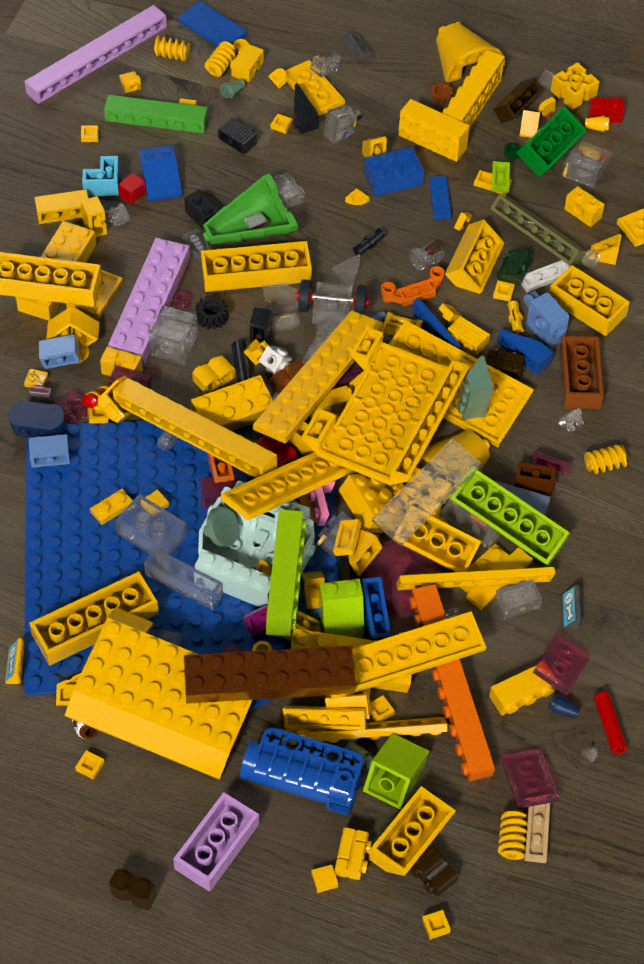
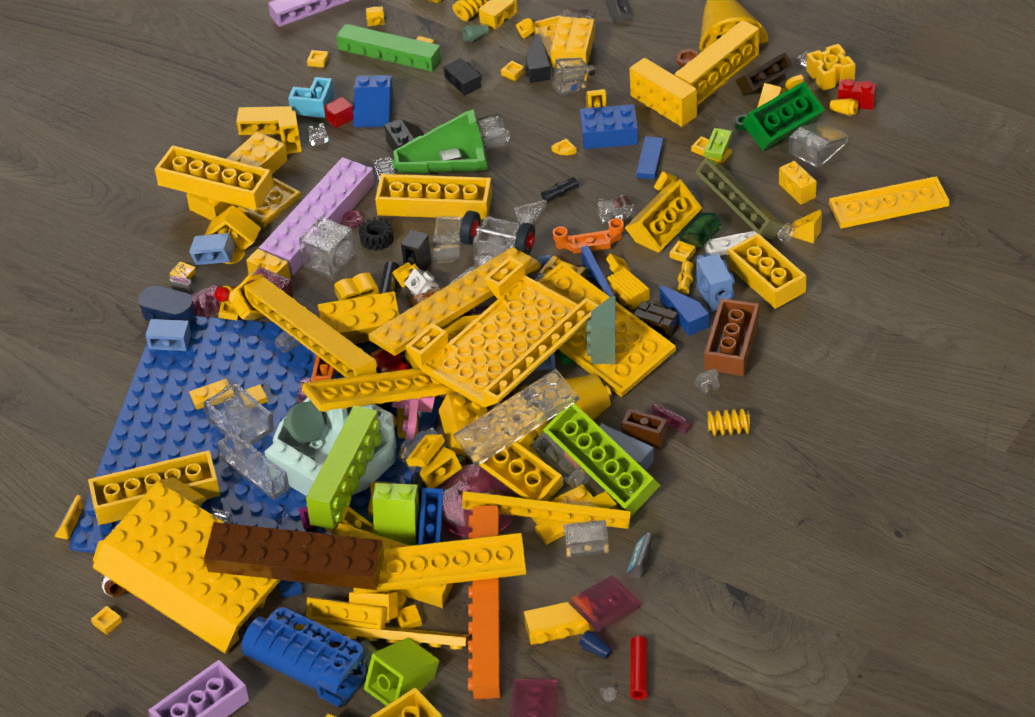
camera: 20 degrees right, 10 degrees down
(331, 87) = (573, 39): none -> yellow brick

